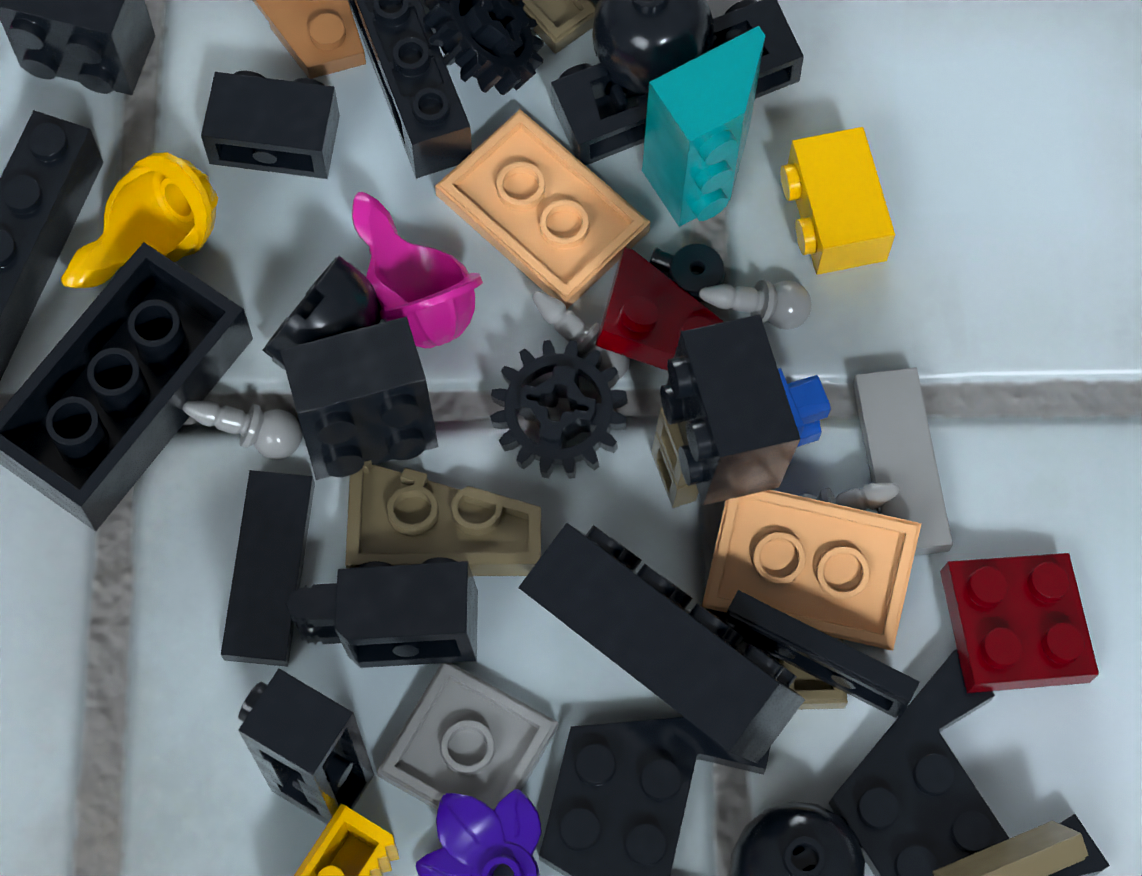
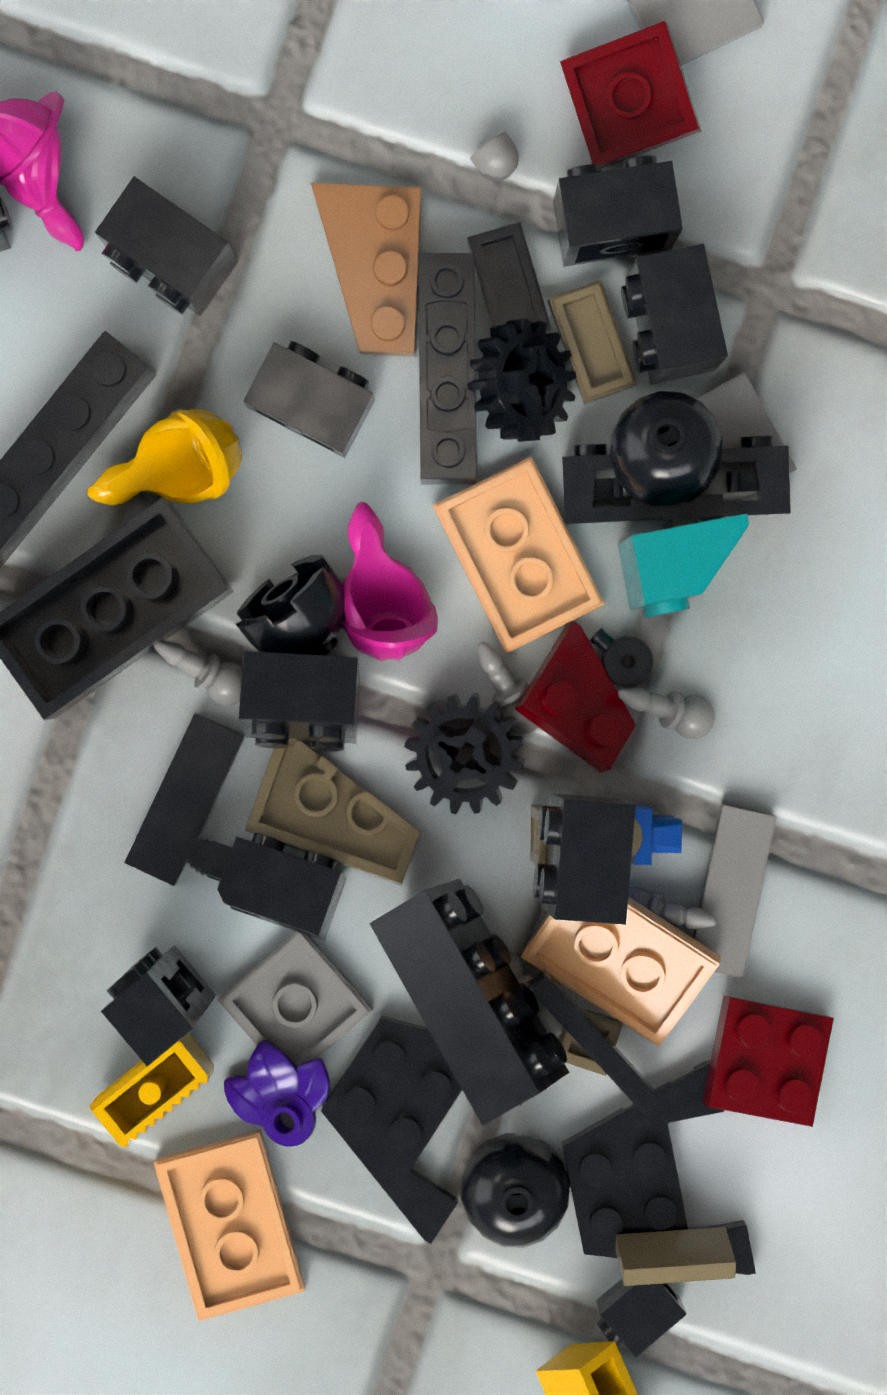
camera: 25 degrees right, 20 degrees up
(838, 201) = (770, 643): yellow brick -> none

